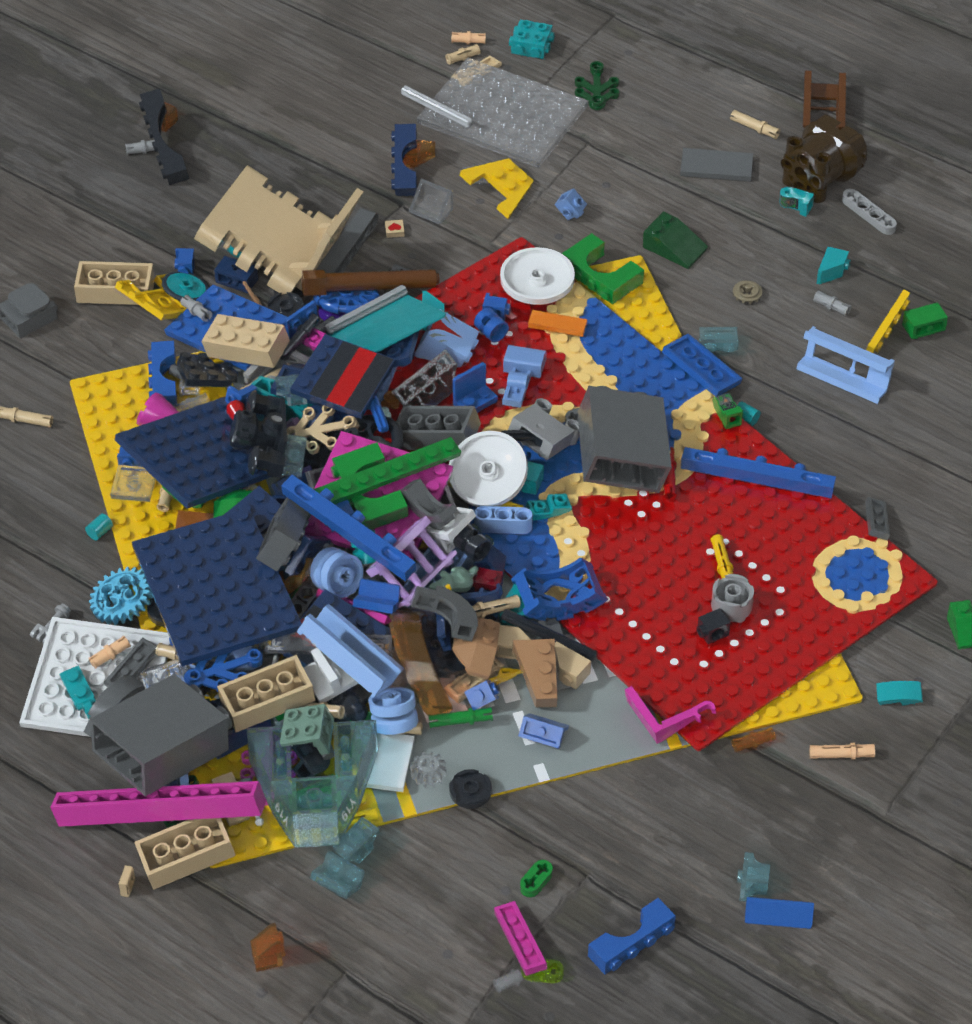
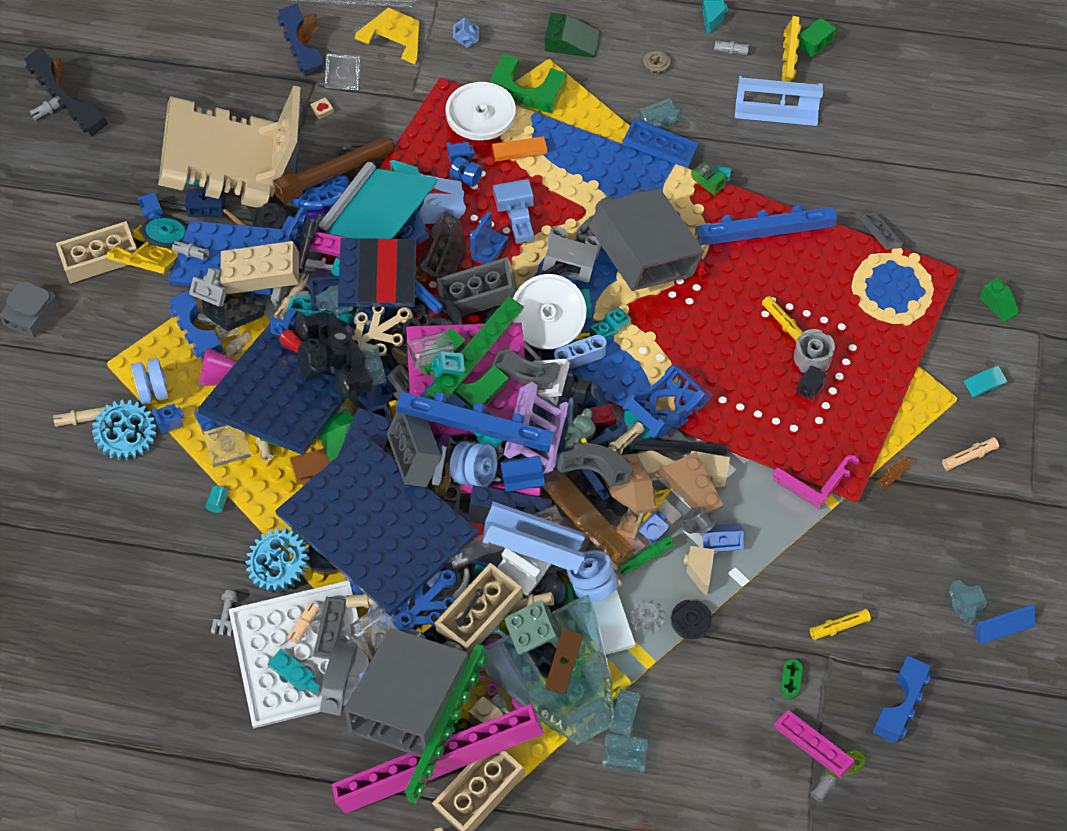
camera: 25 degrees left, 10 degrees up
(51, 439) = (120, 445): none -> medium azure gear
(94, 403) = (151, 380): none -> light blue wheel
(94, 443) = (168, 418): none -> blue brick
(177, 771) = (444, 727): none -> green plate
(190, 342) = (209, 288): none -> light grey hinge
(240, 692) = (460, 621): none -> black hinge
(316, 765) = (567, 651): none -> reddish brown tile
(344, 454) = (426, 348): none -> clear slope
(352, 468) = (448, 363): none -> teal bracket
(506, 745) = (699, 566): none -> tan slope
(524, 704) = (697, 521): none -> dark grey piece
(612, 849) = (832, 627): none -> yellow pin

